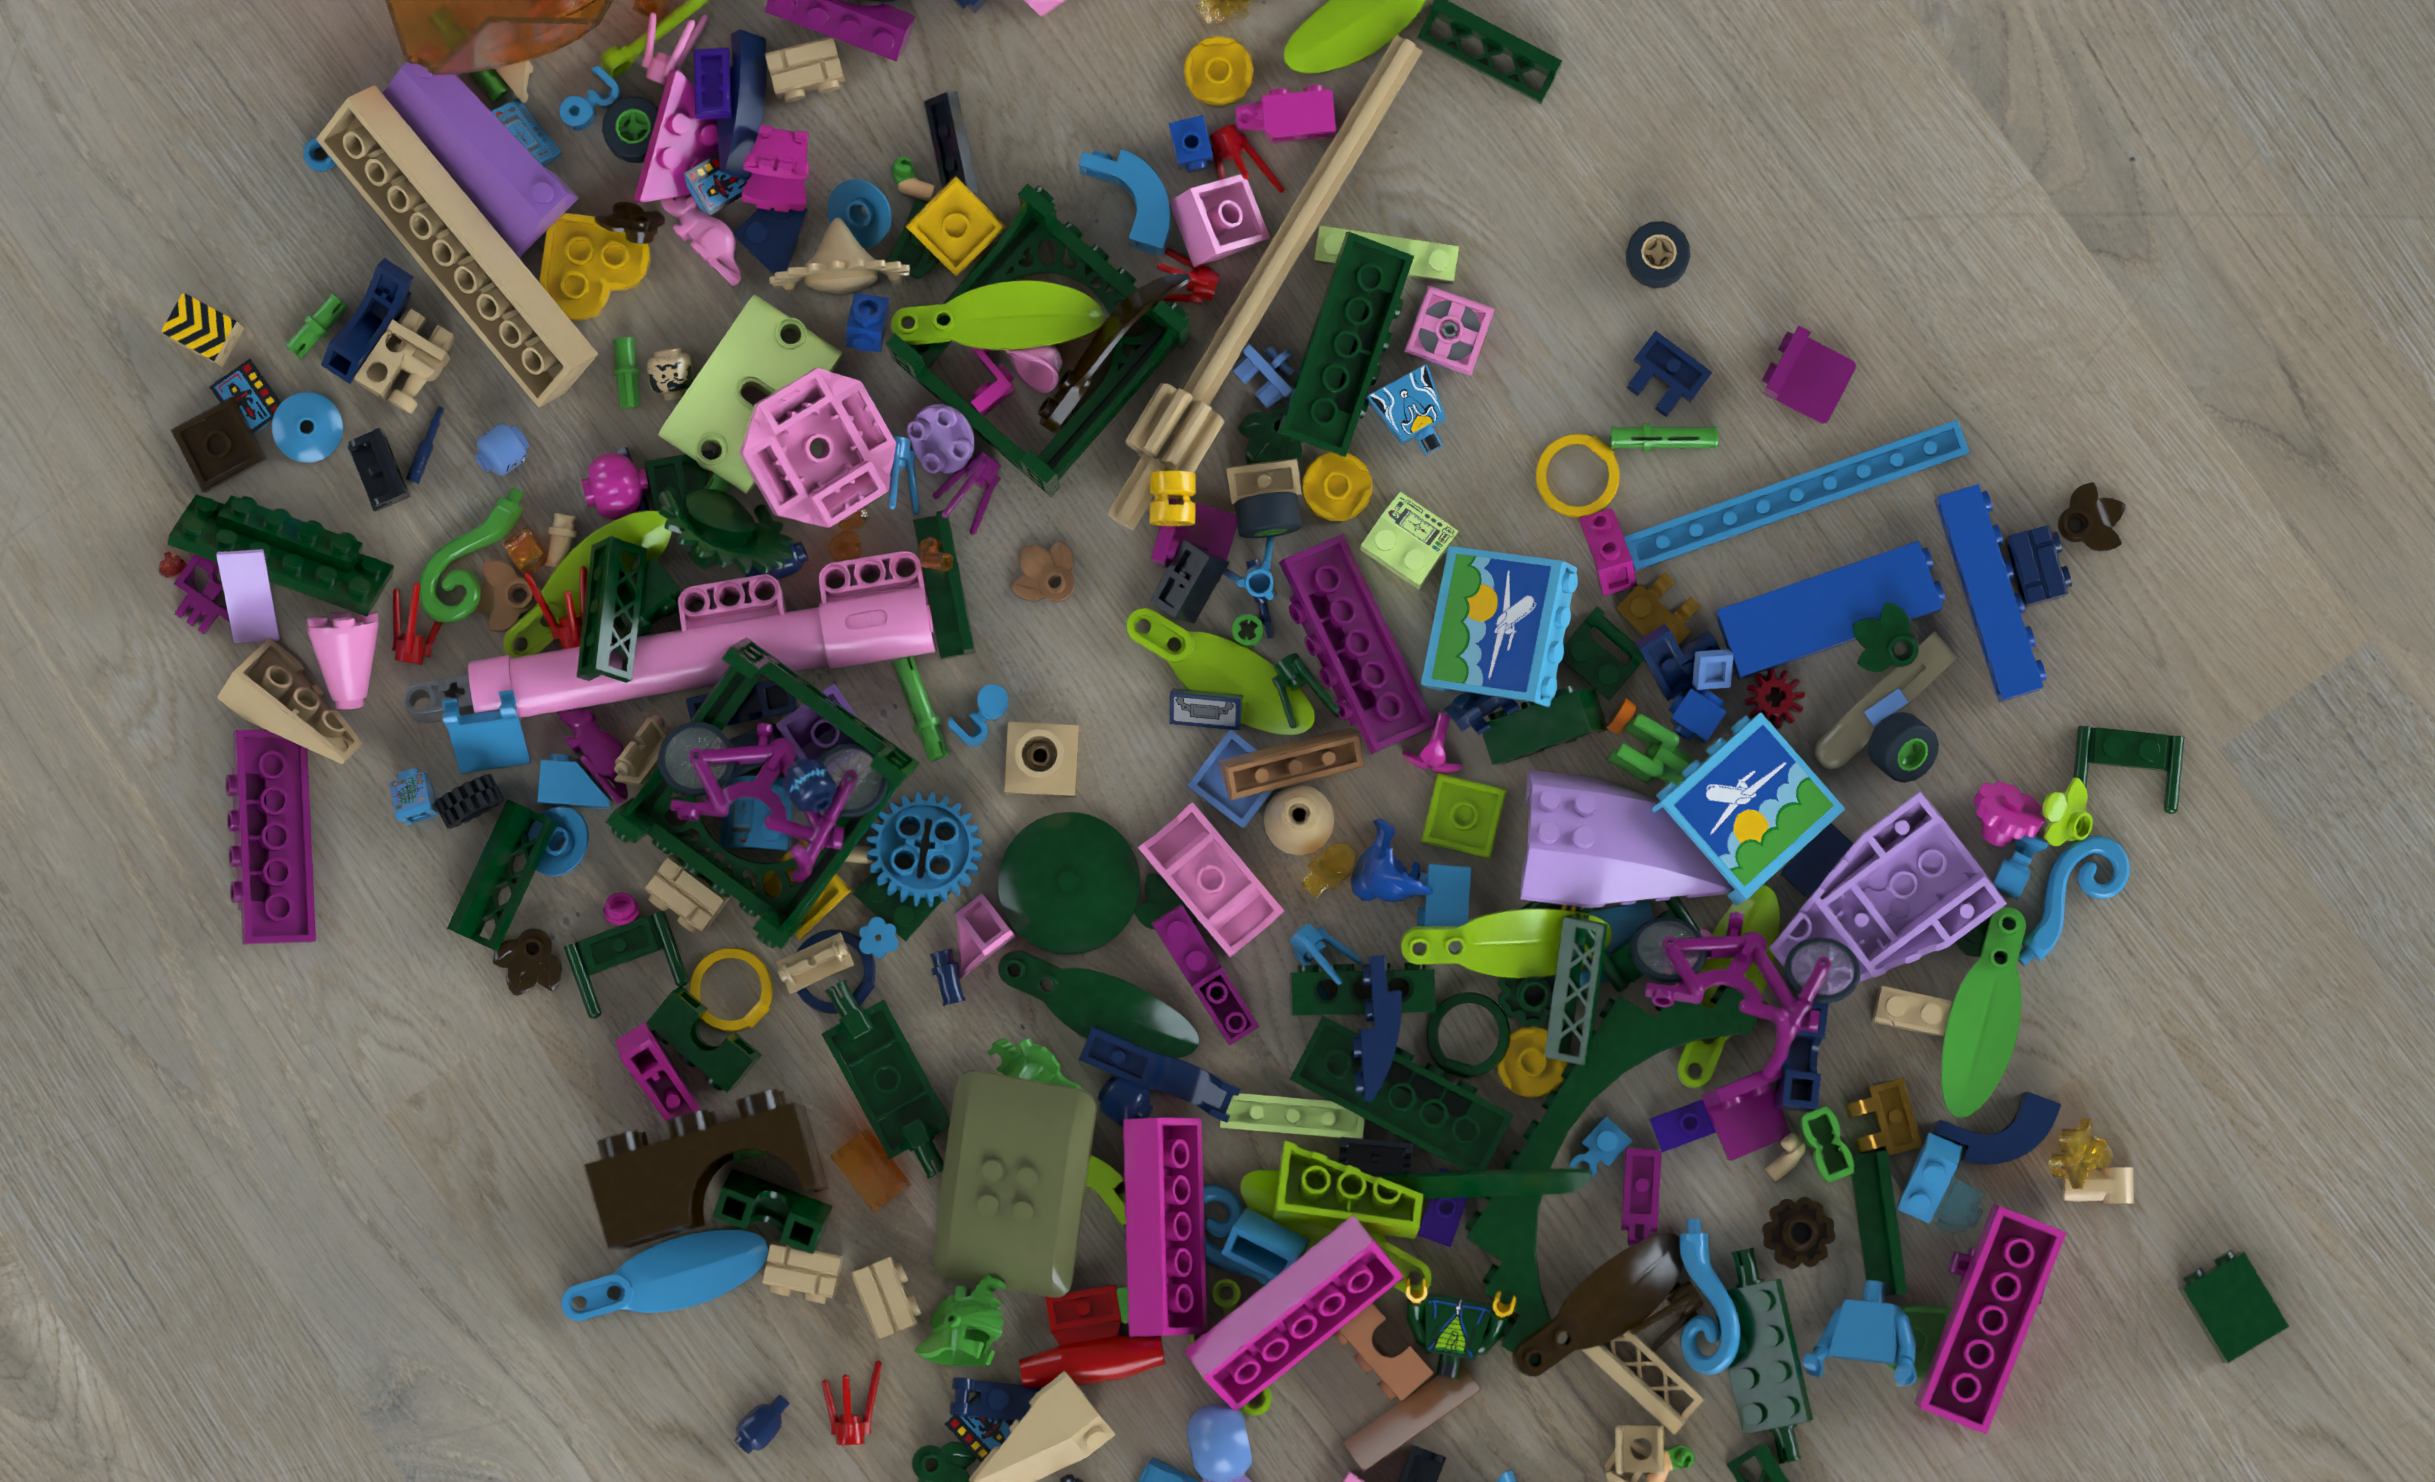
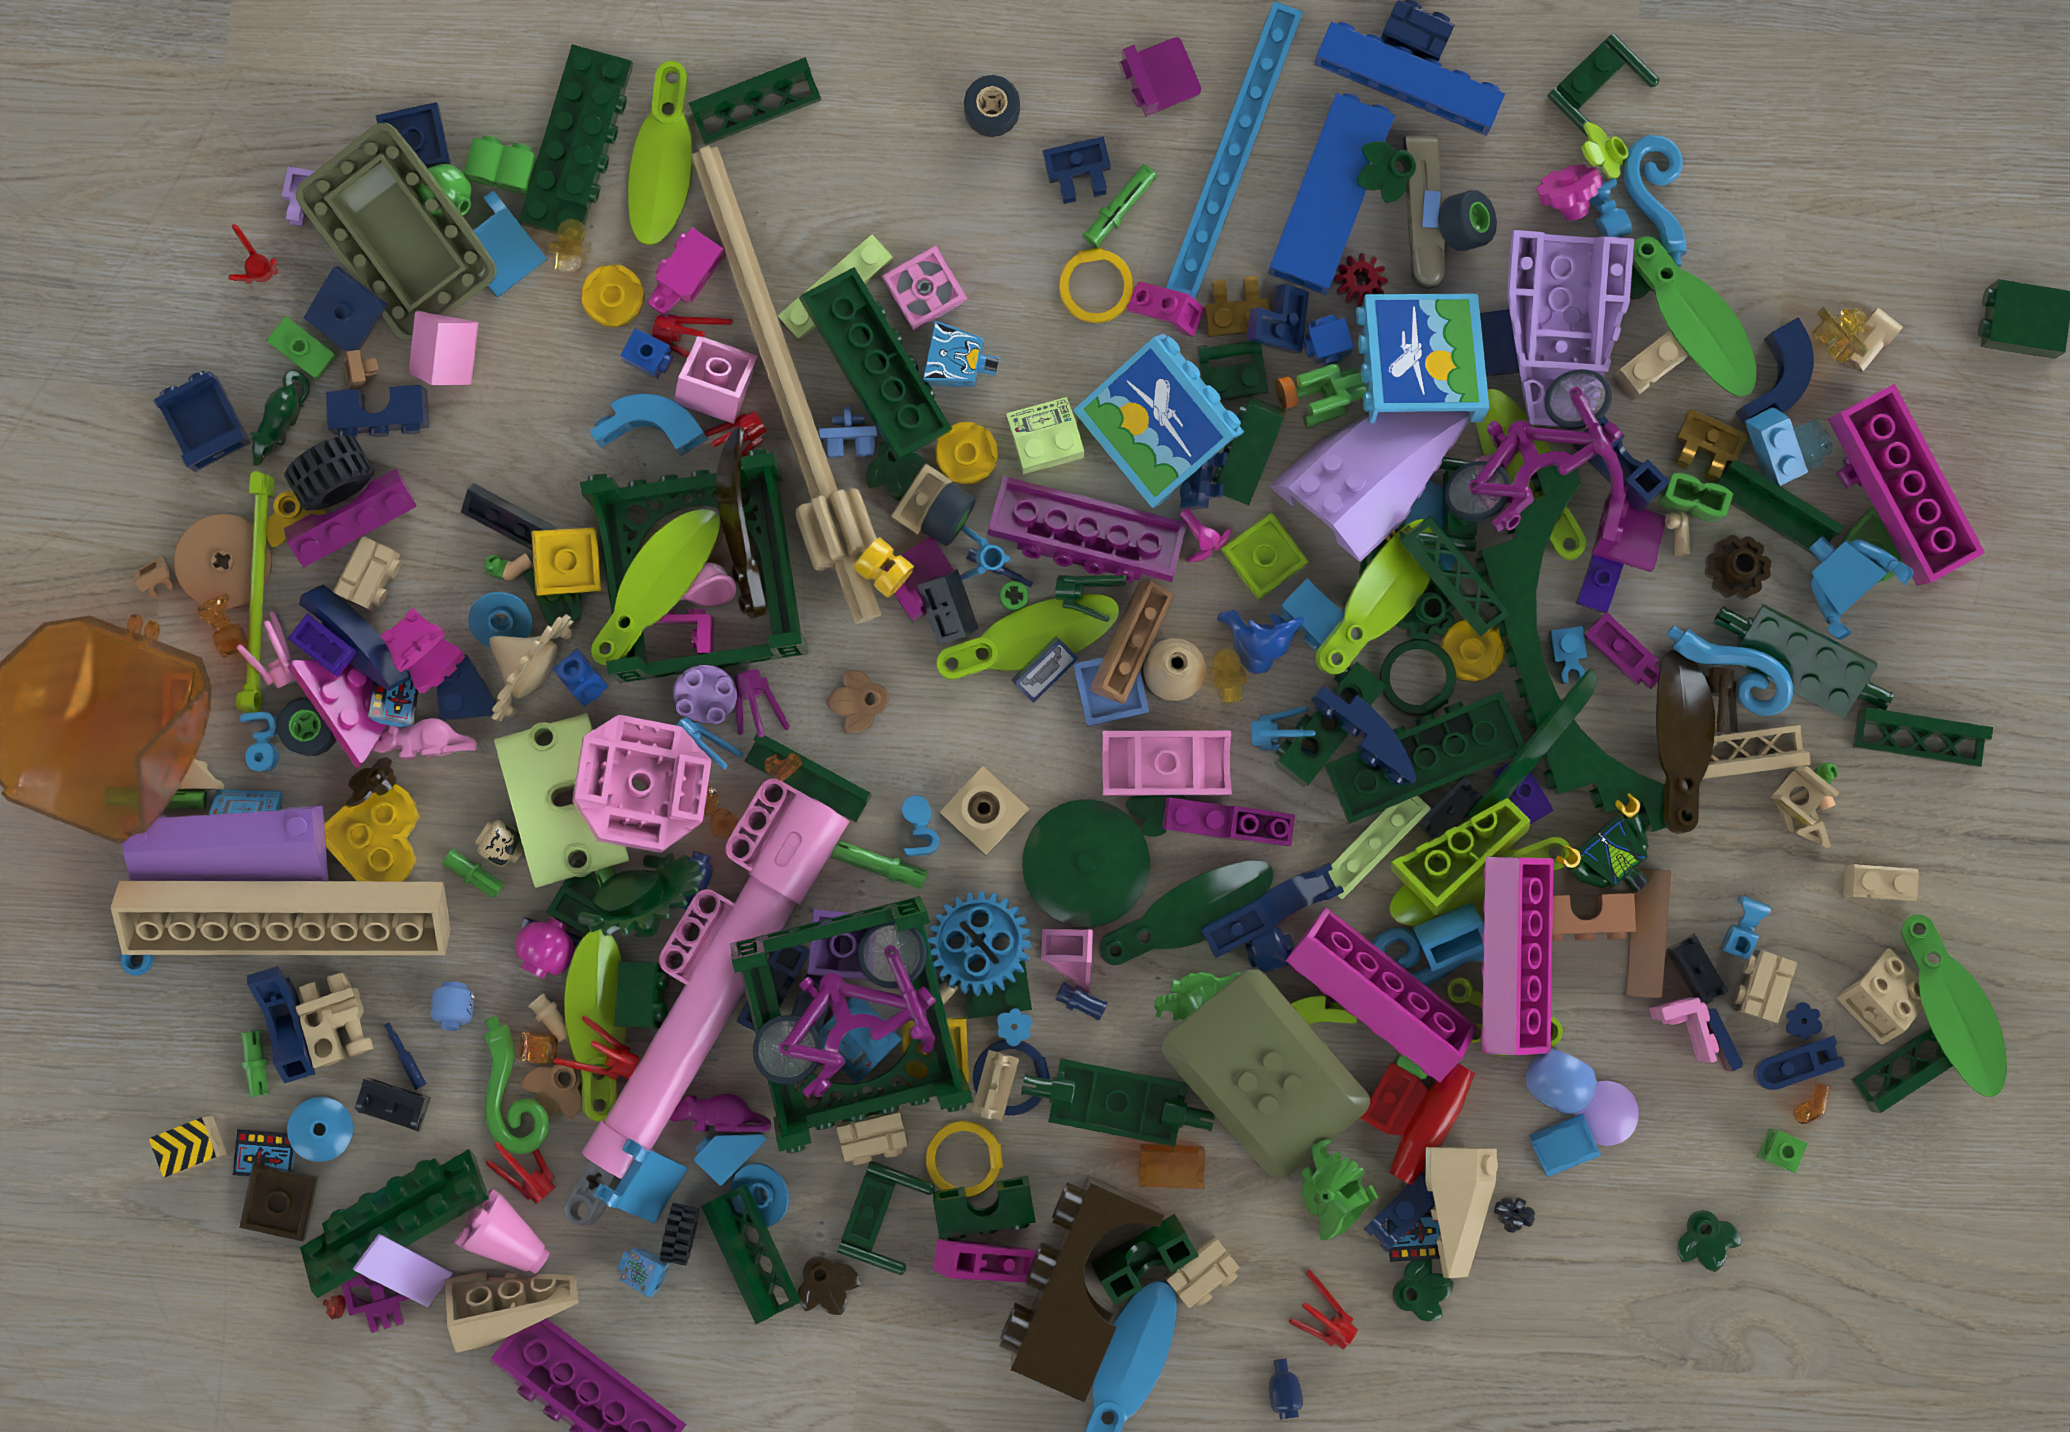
camera: 60 degrees left, 0 degrees up
(600, 610) = (623, 1029): dark green fence -> none
(621, 909) = (844, 1189): dark pink plate -> none
(637, 761) = (752, 1091): tan hinge -> none
(809, 785) = (874, 985): dark blue head -> none
(886, 1298) = (1268, 1229): tan brick -> none
(1712, 669) = (1307, 303): medium blue plate -> none

